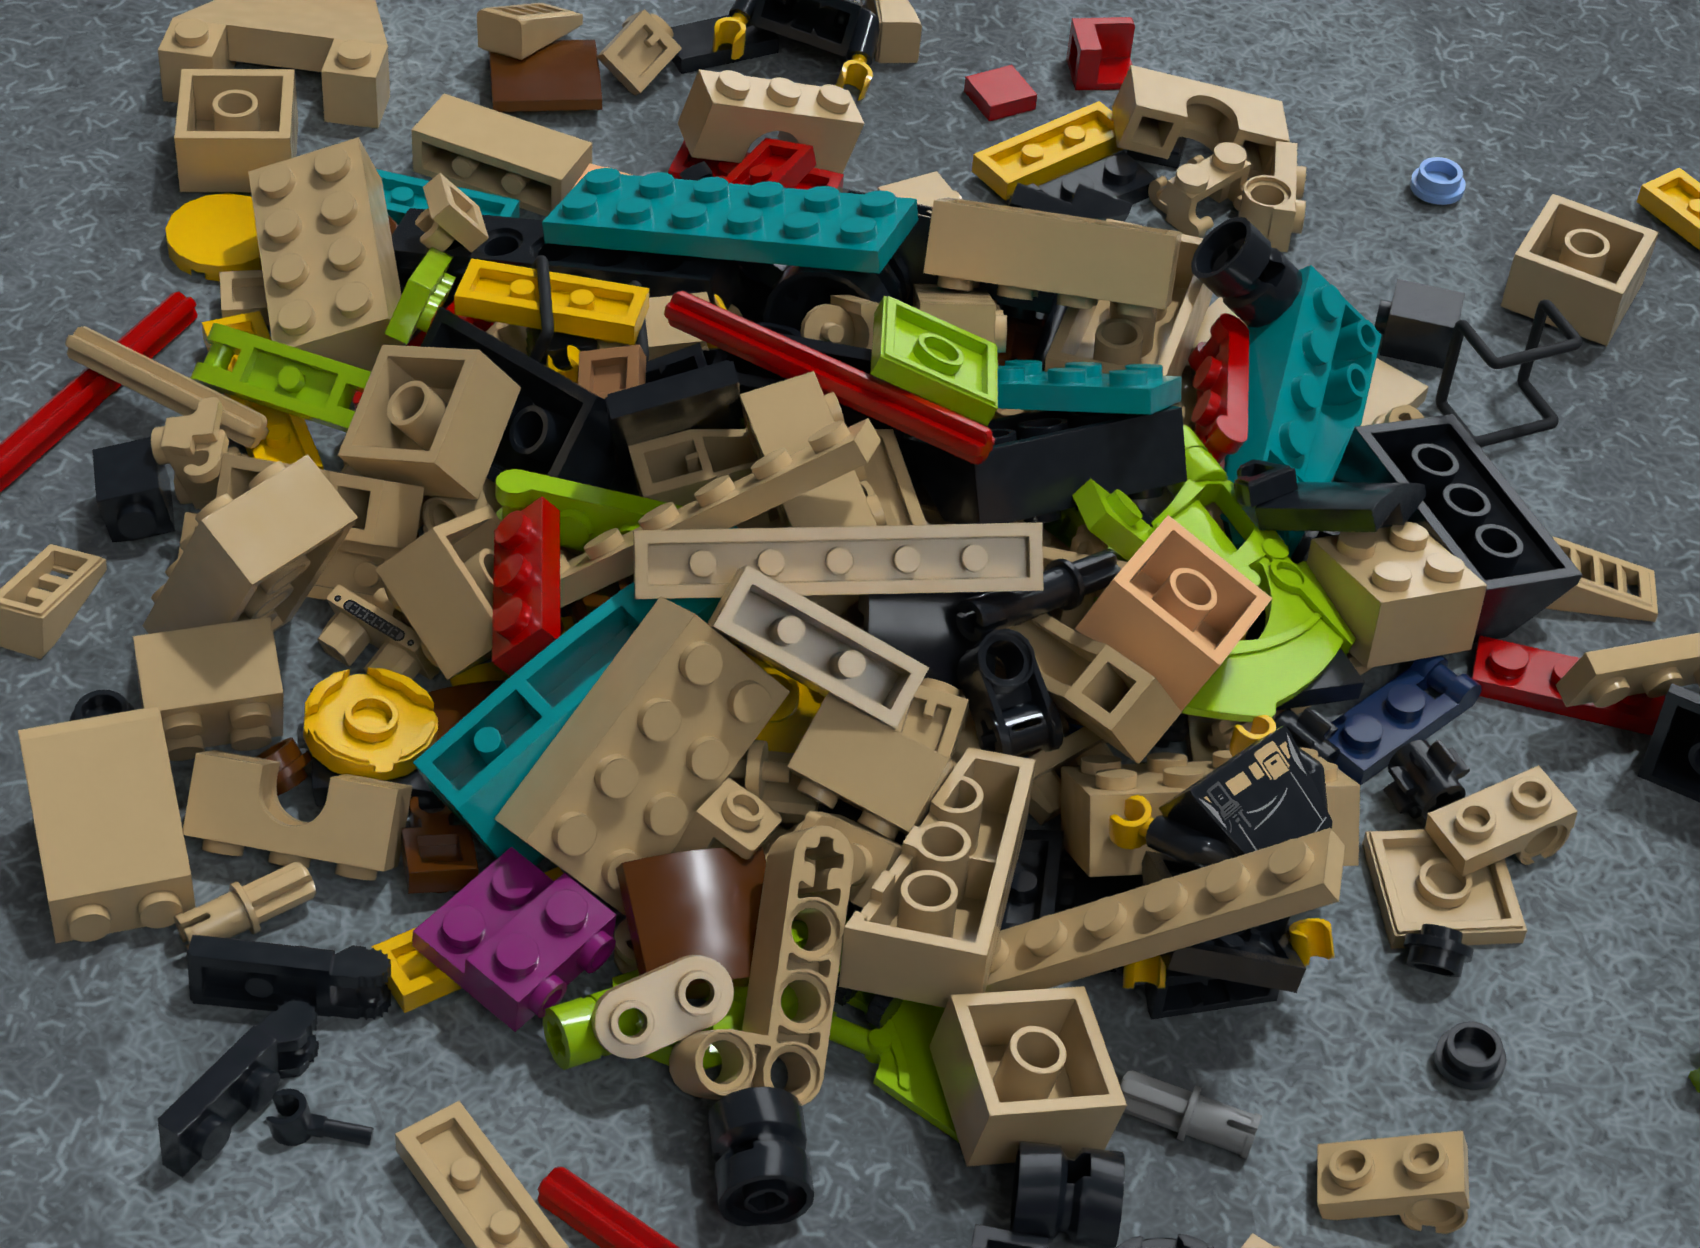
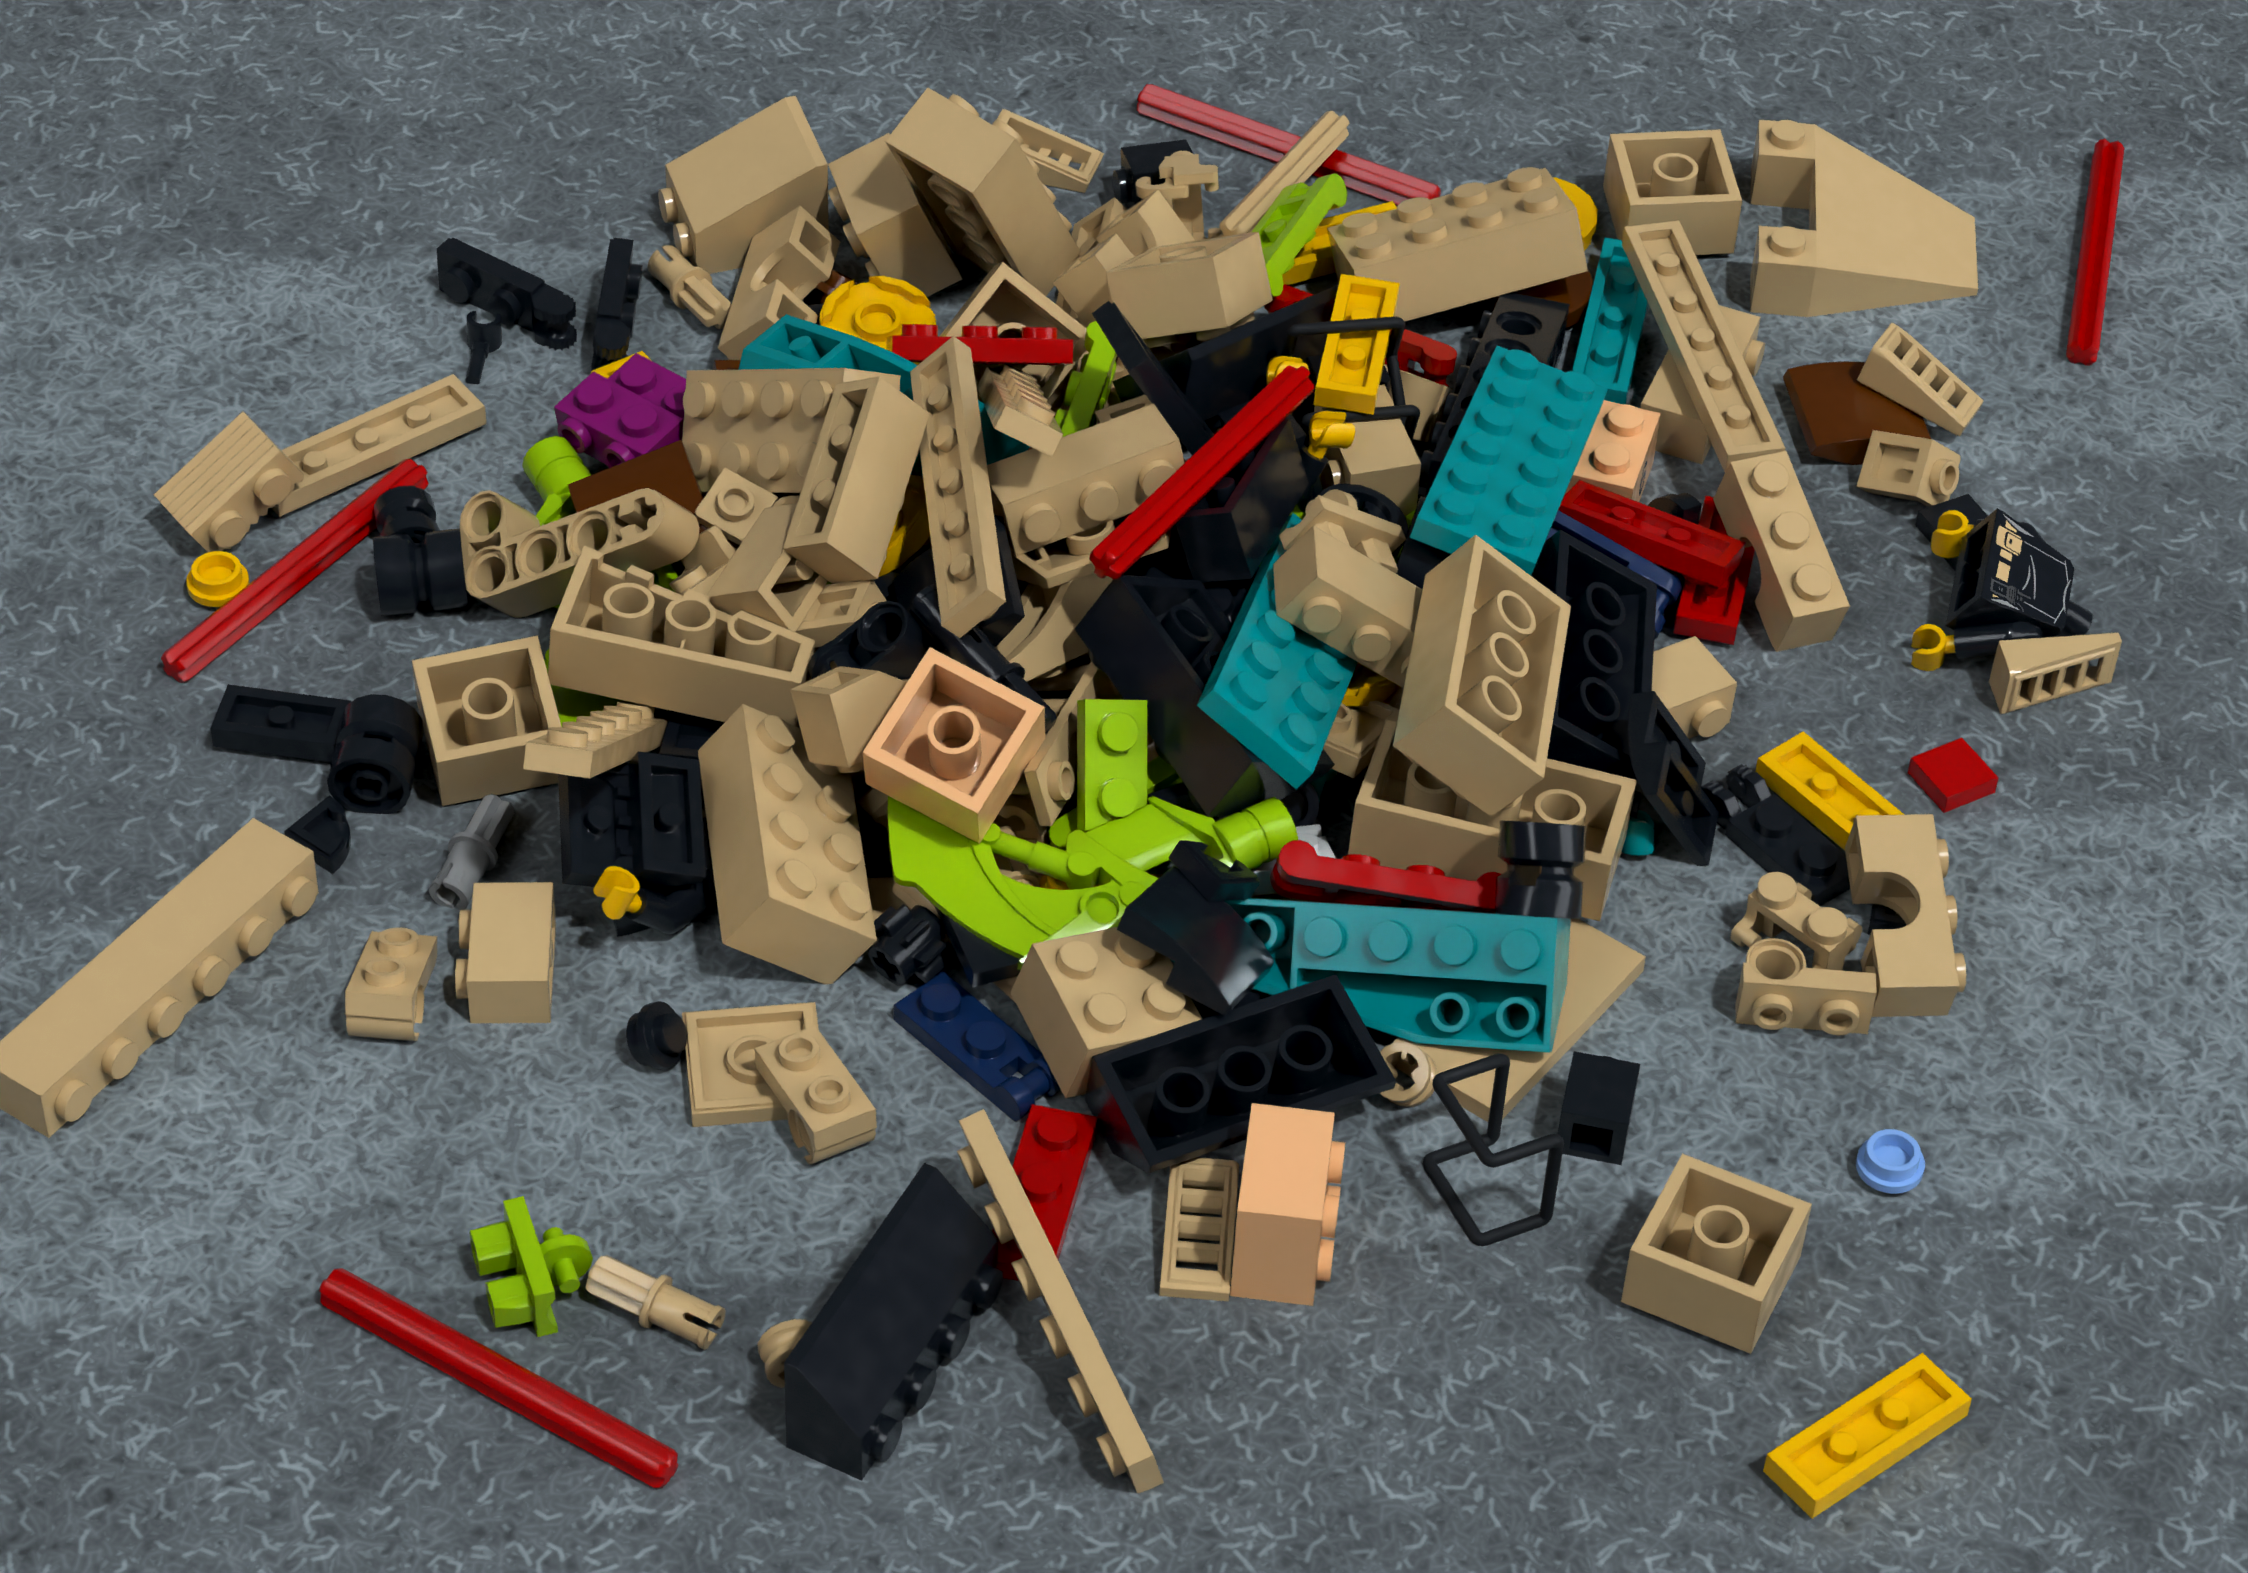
camera: 90 degrees right, 0 degrees up
(422, 296) = (1421, 302): lime plate -> none
(450, 217) = (1520, 303): tan tile -> none
(507, 119) = (1700, 342): none -> tan plate
(612, 369) = (1243, 383): medium nougat plate -> none
(663, 1005) = (548, 483): tan plate -> none
(670, 1179) = (405, 512): none -> black wheel
(935, 360) = (1225, 533): lime tile -> none
(1100, 52) = (2038, 853): red panel -> none
(1246, 804) = (713, 797): black torso -> none
(1345, 1071) = (509, 953): none -> tan brick
(1425, 778) = (873, 1041): black gear -> none
(1470, 1056) = (538, 1057): black plate -> none
(1604, 491) = (1286, 1205): none -> light nougat brick

